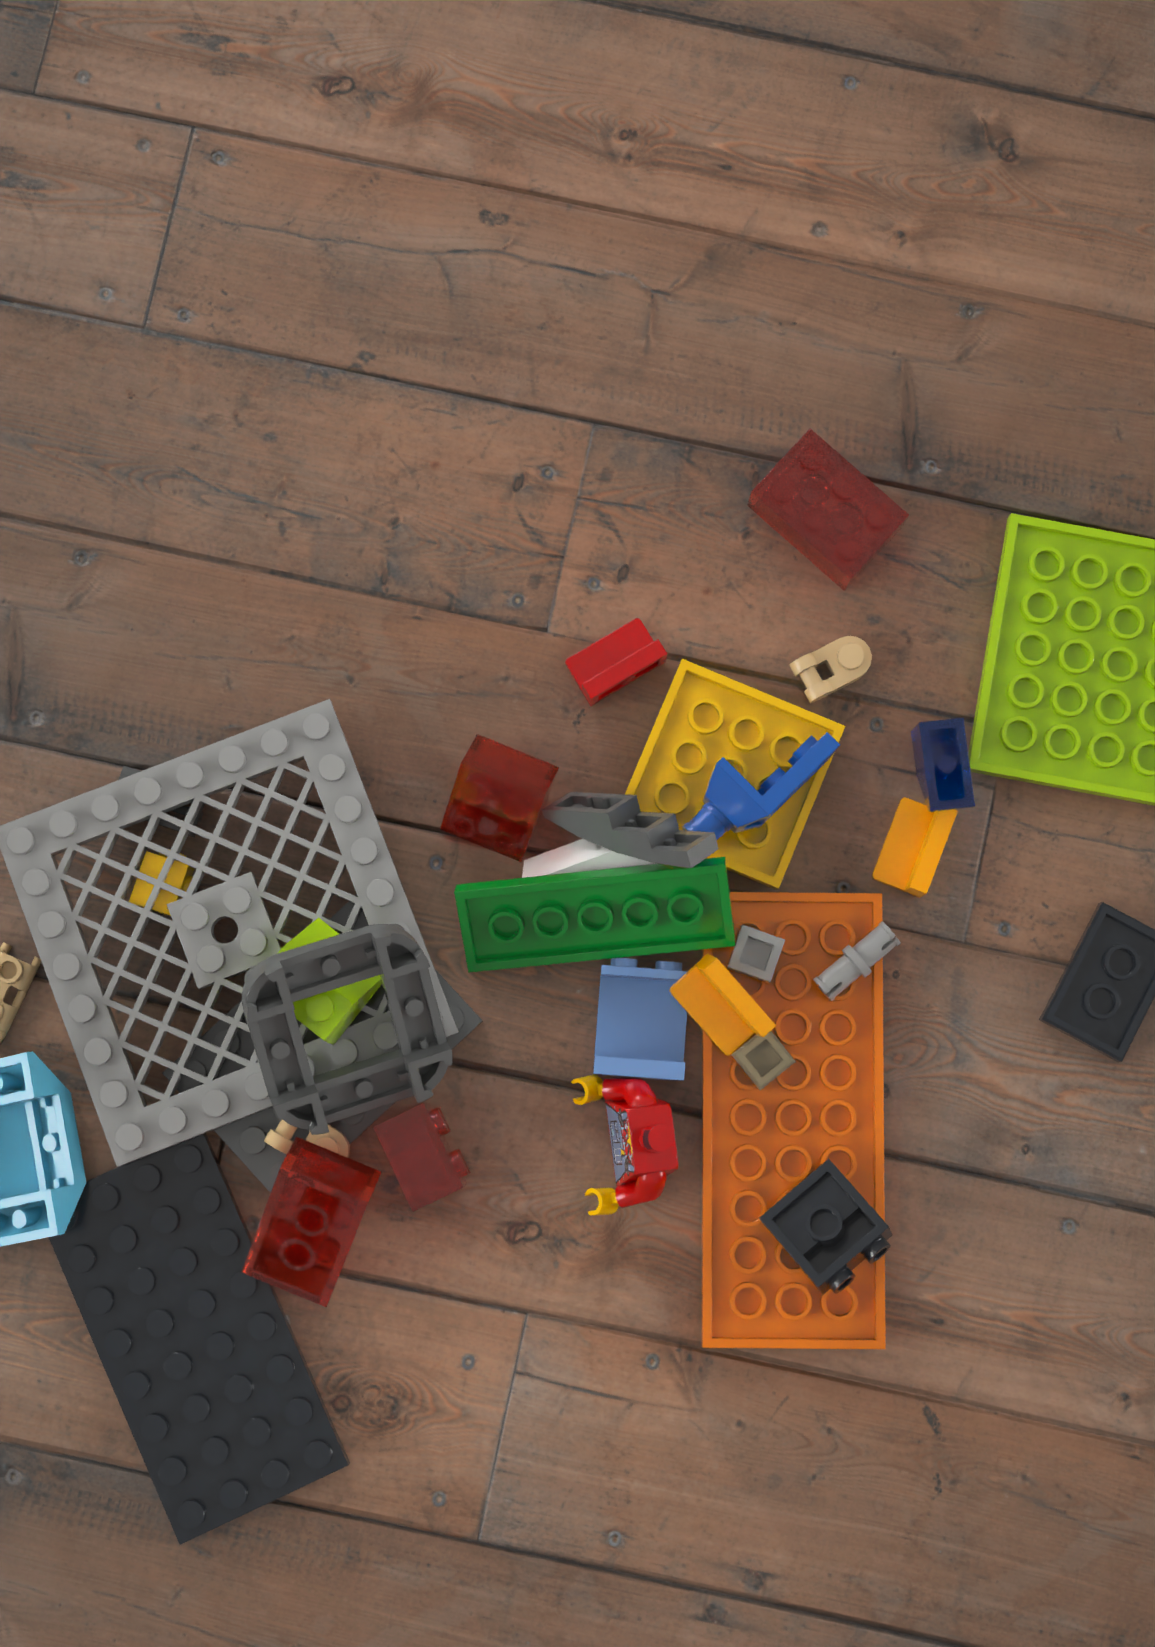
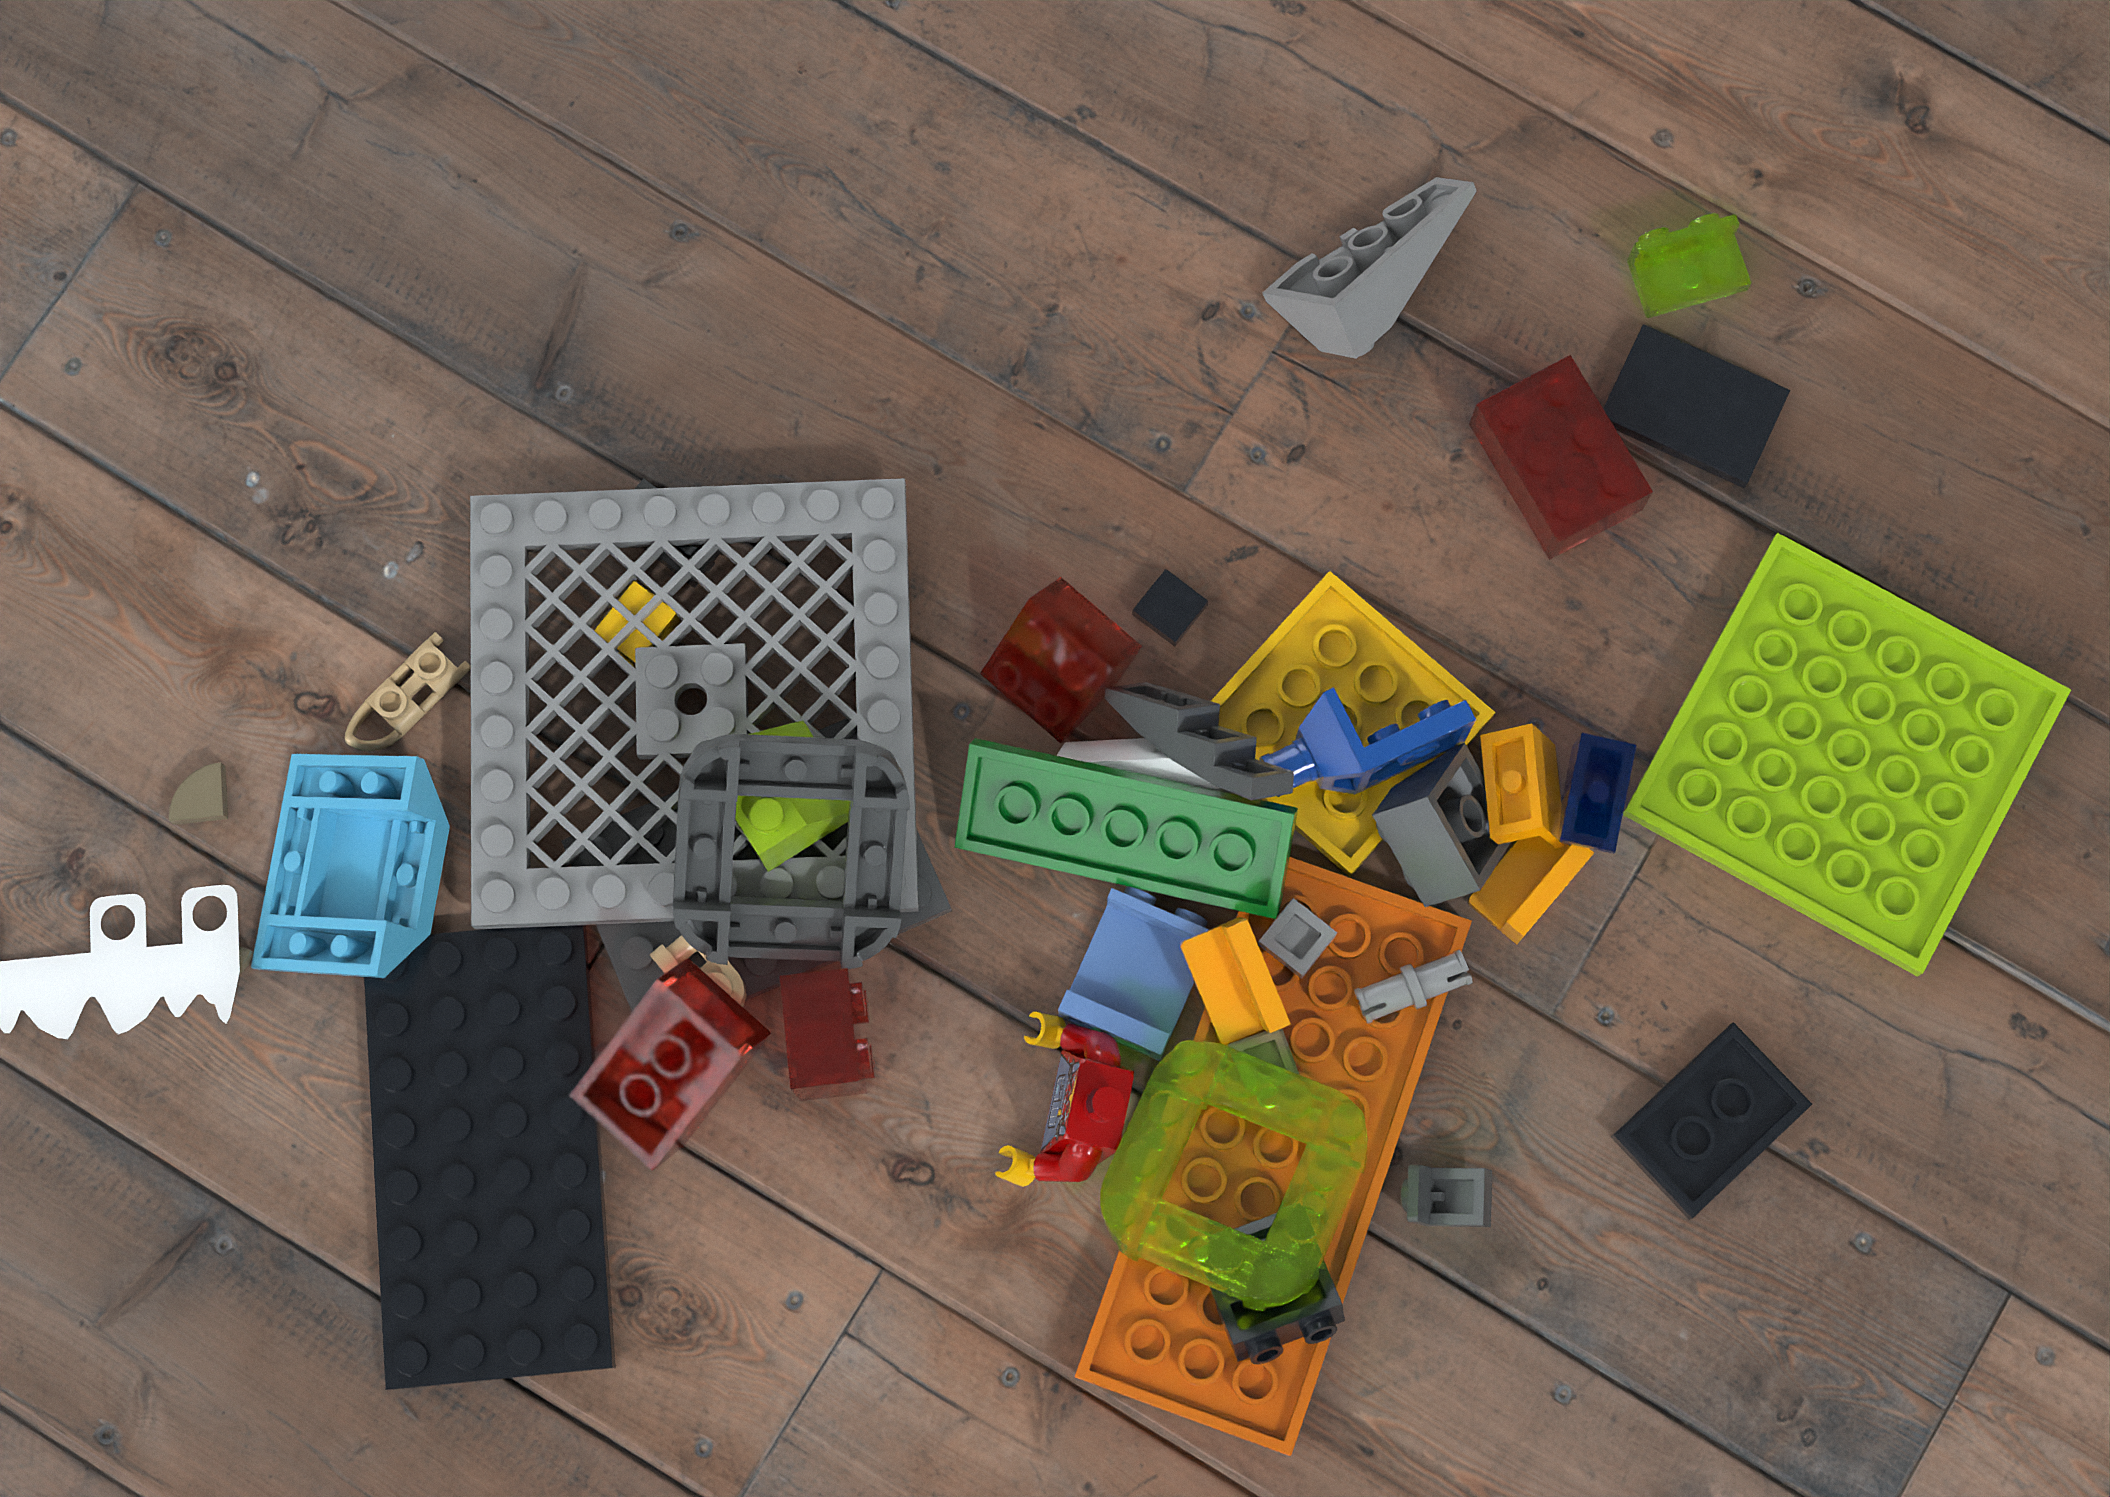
camera: 25 degrees right, 5 degrees down
(568, 727) = (1170, 607): none -> black tile
(615, 661) = (1252, 550): red panel -> none
(631, 421) = (1364, 285): none -> light grey wedge
(769, 1222) = (1206, 1250): none -> clear neon green plate
(838, 829) = (1441, 828): none -> dark grey slope
(845, 659) = (1523, 637): tan plate -> none
(873, 324) = (1688, 265): none -> clear neon green bracket
(884, 776) = (1521, 785): none -> light orange panel
(914, 434) = (1694, 406): none -> black tile
(935, 1110) = (1448, 1196): none -> dark grey bracket

